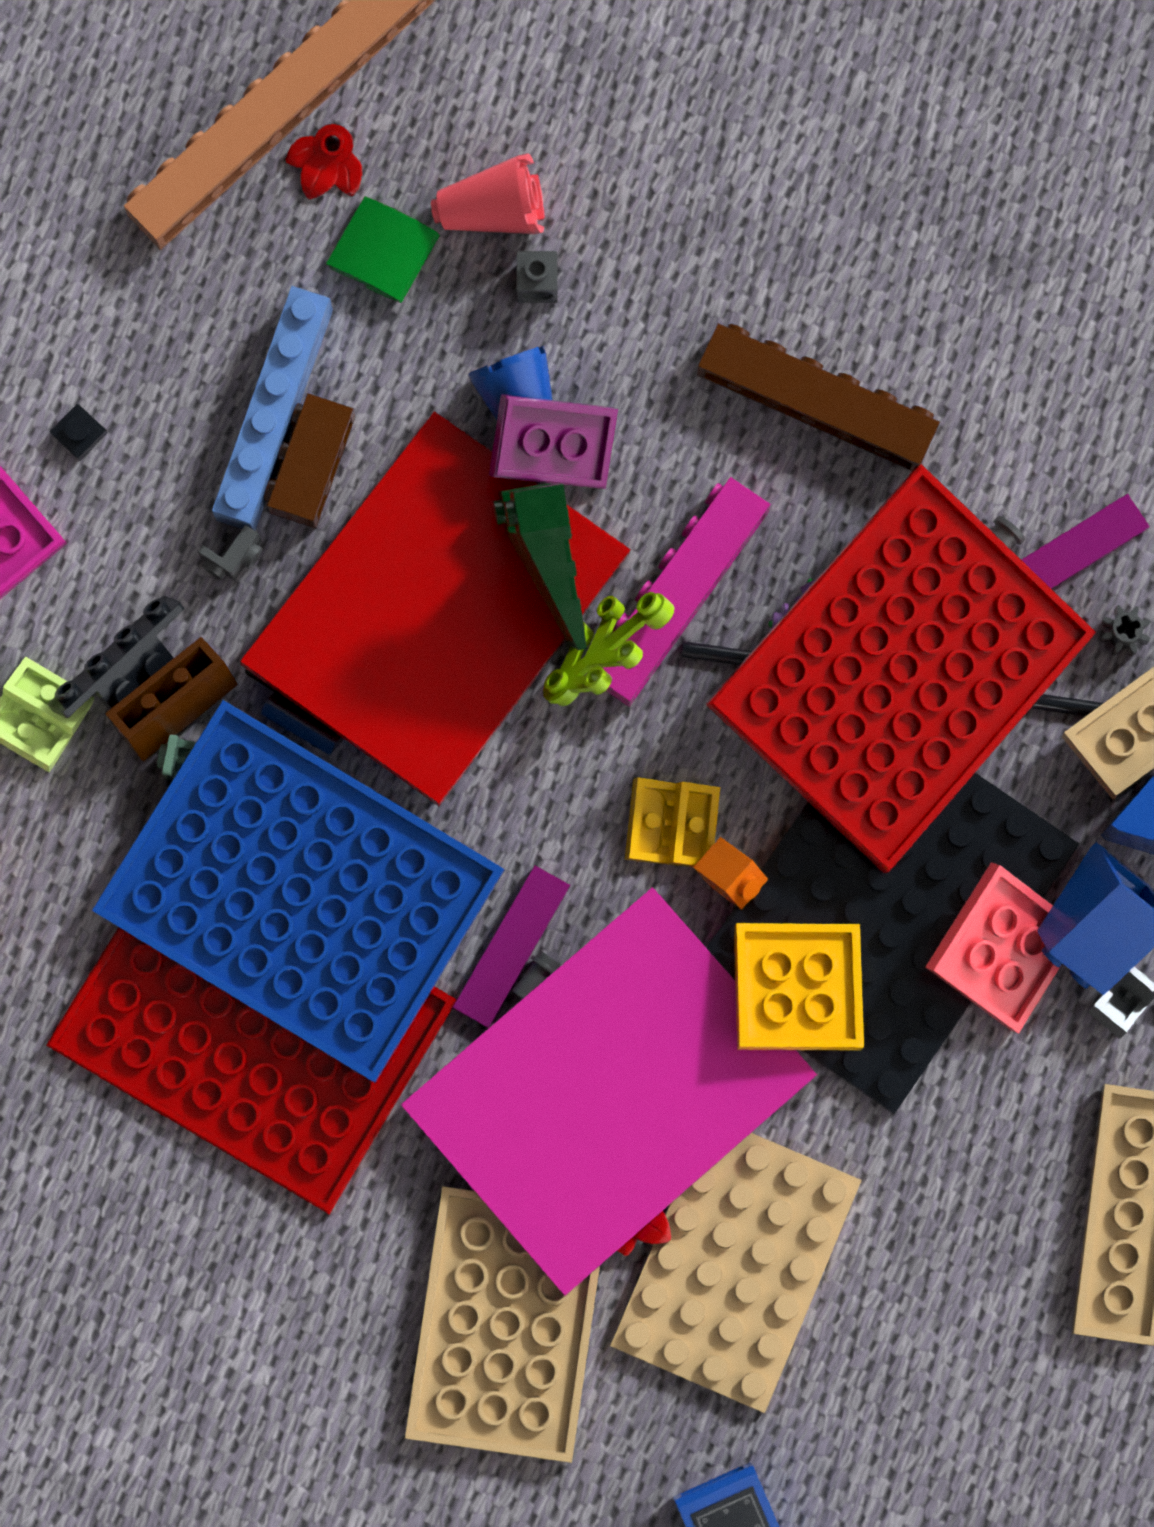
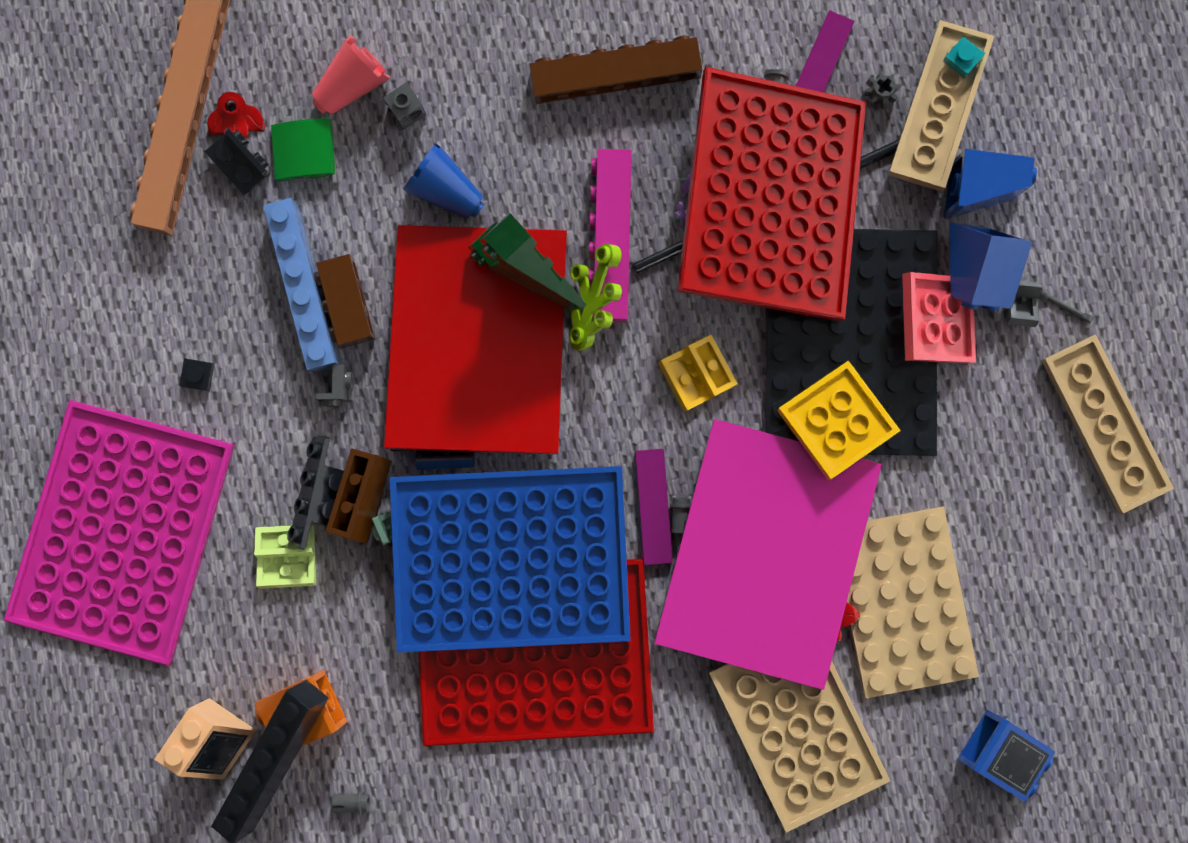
camera: 35 degrees left, 5 degrees up
(296, 214) = (237, 161): none -> black bracket
(553, 441) = (480, 196): magenta tile -> none
(731, 873) = (753, 380): orange brick -> none

